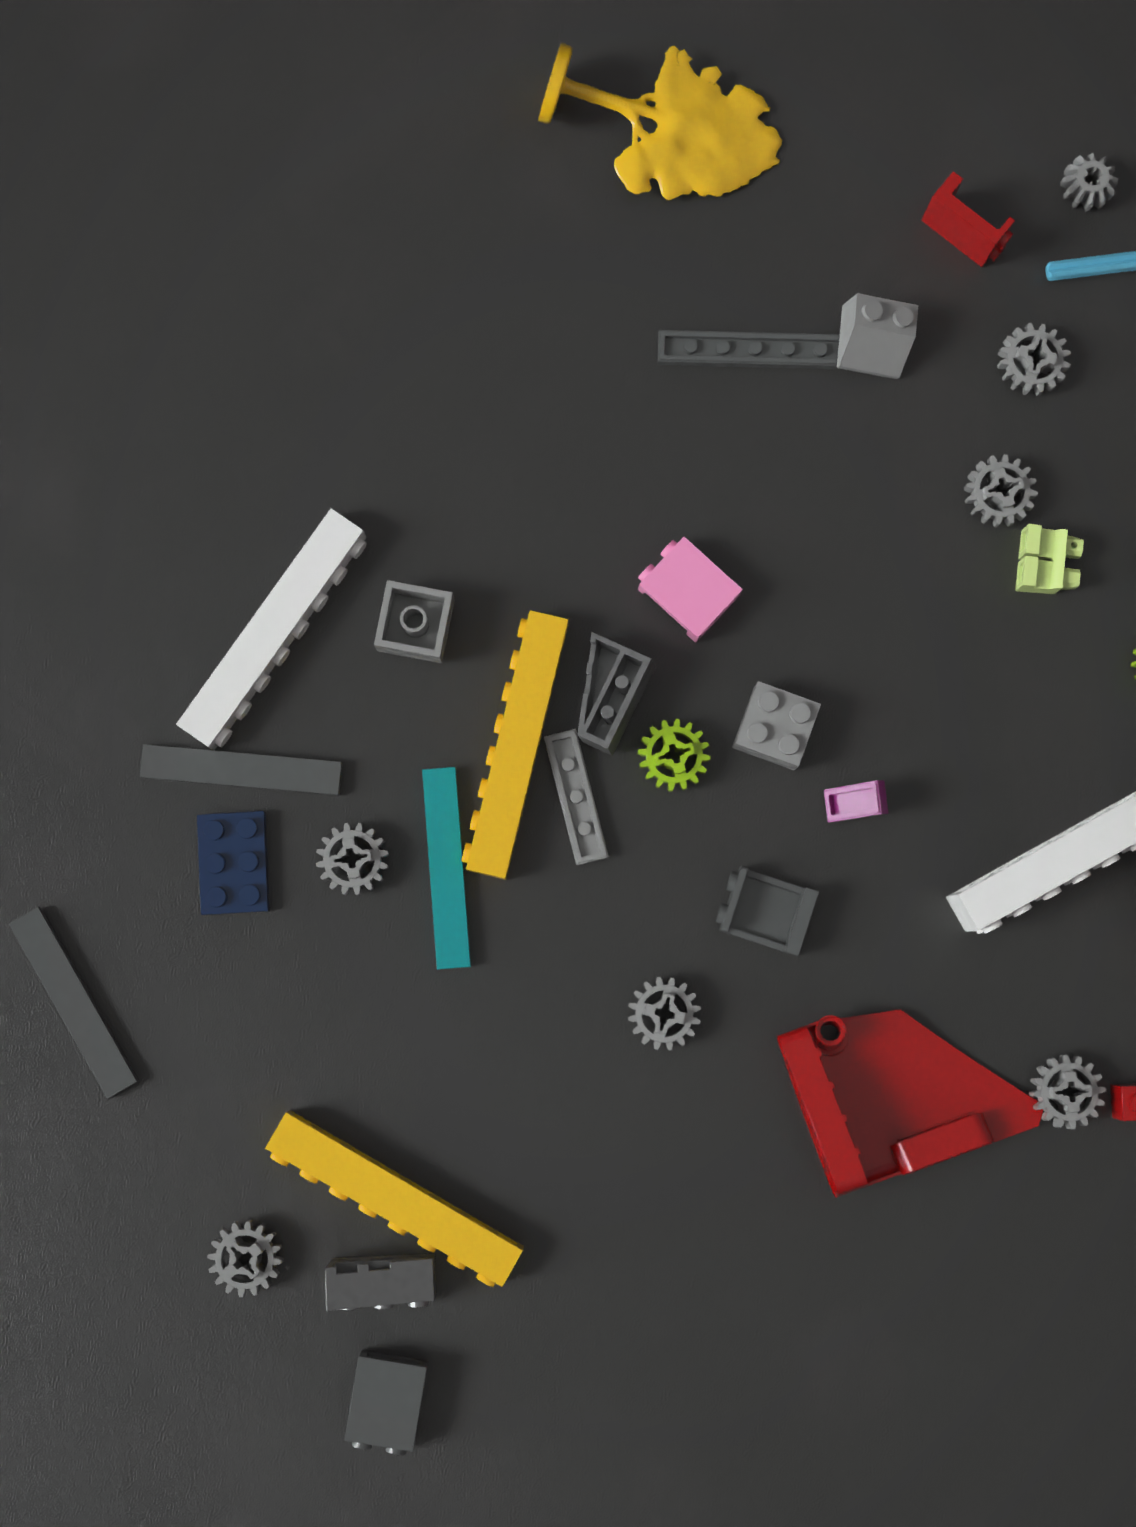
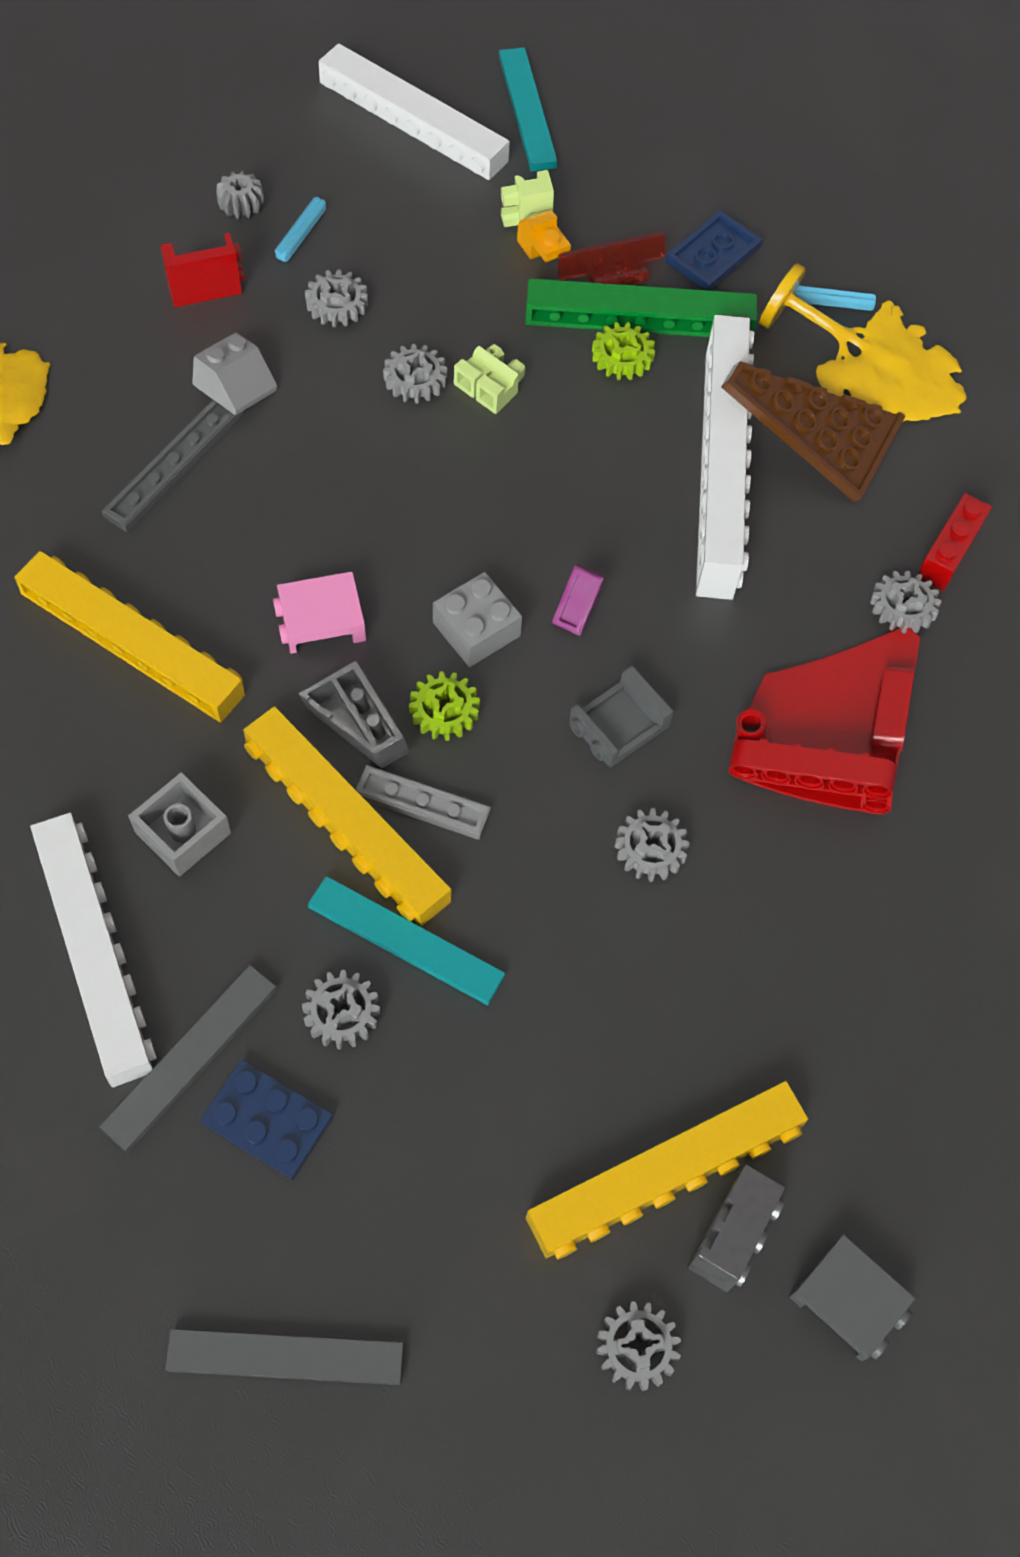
camera: 60 degrees left, 20 degrees down
(555, 448) = (131, 636): none -> yellow brick

